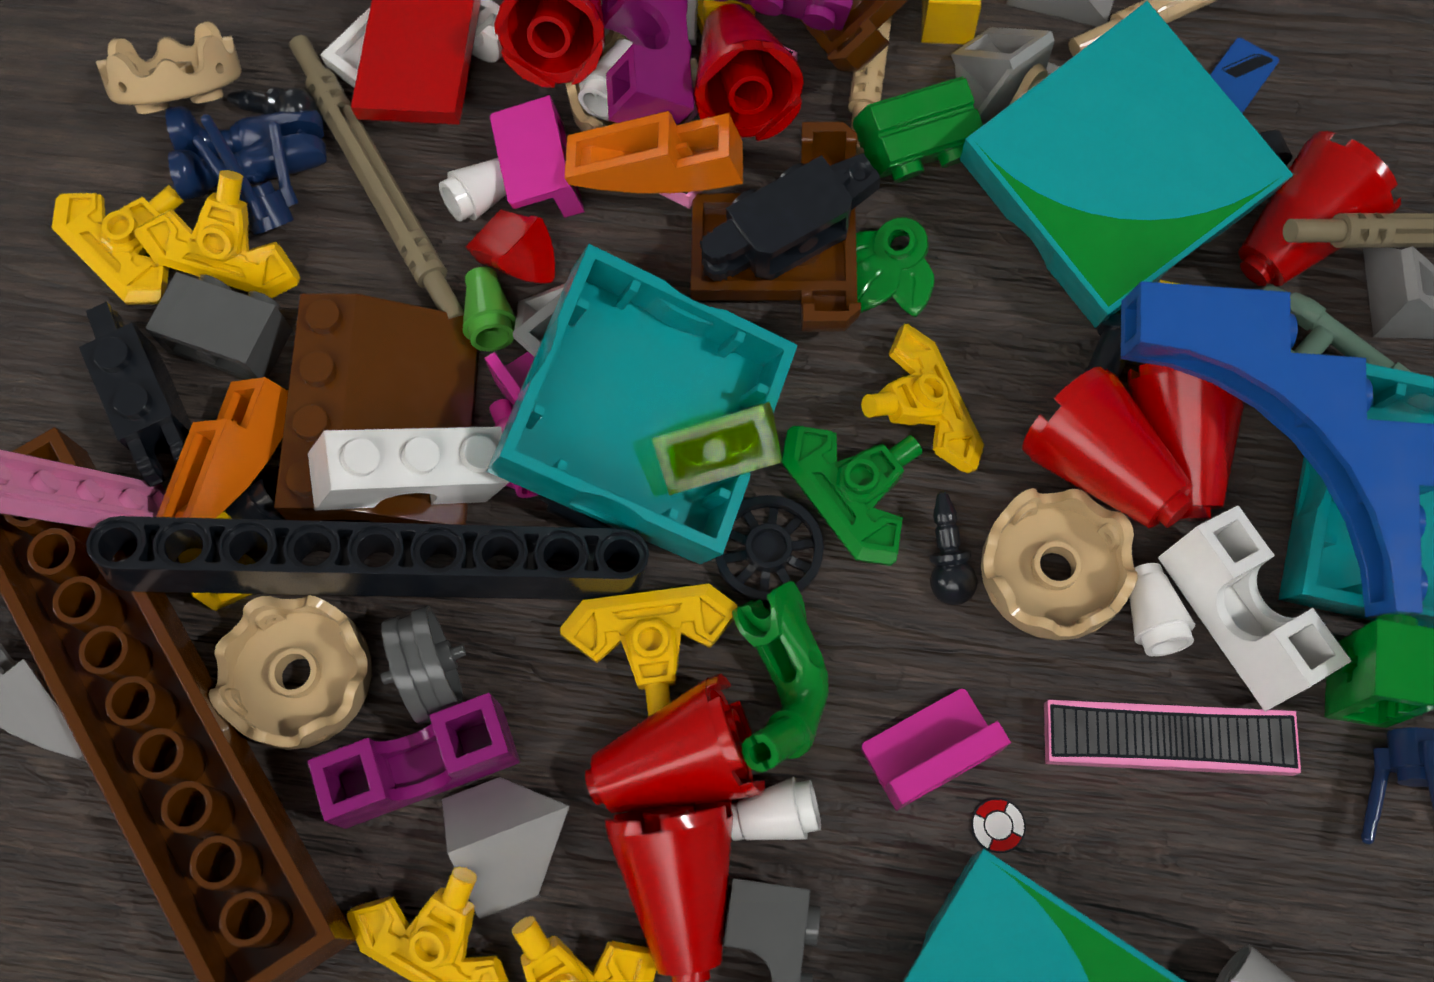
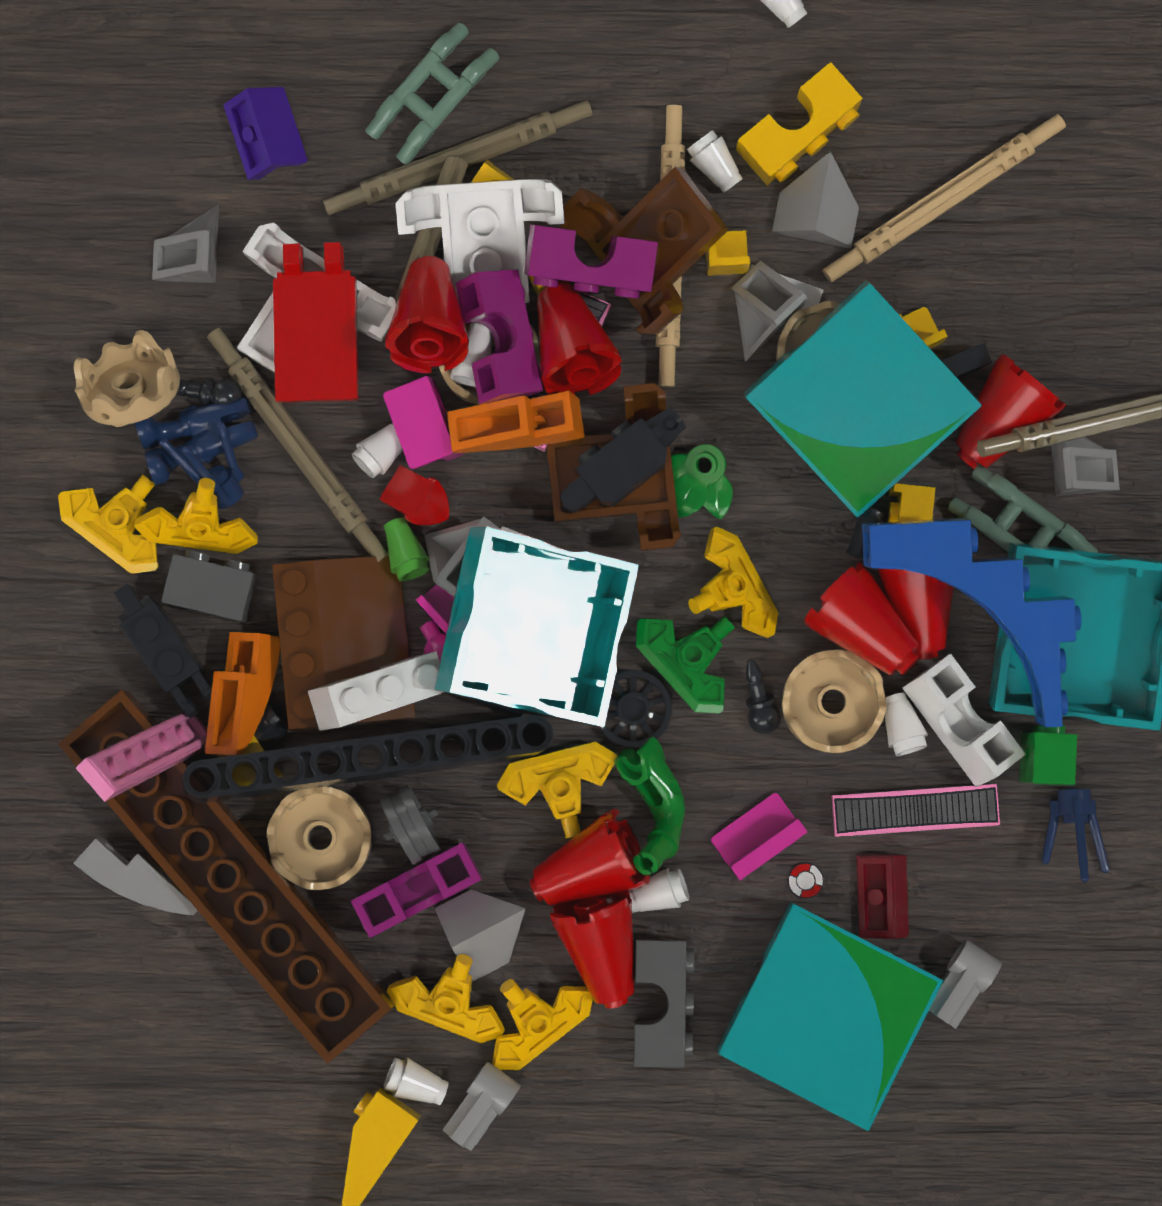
camera: 10 degrees left, 15 degrees up
(718, 448) = (591, 650): clear neon green slope -> none
(918, 129) = (711, 371): green brick -> none
(1115, 862) = (882, 896): none -> dark red slope
(1243, 72) = (954, 285): blue sticker -> none

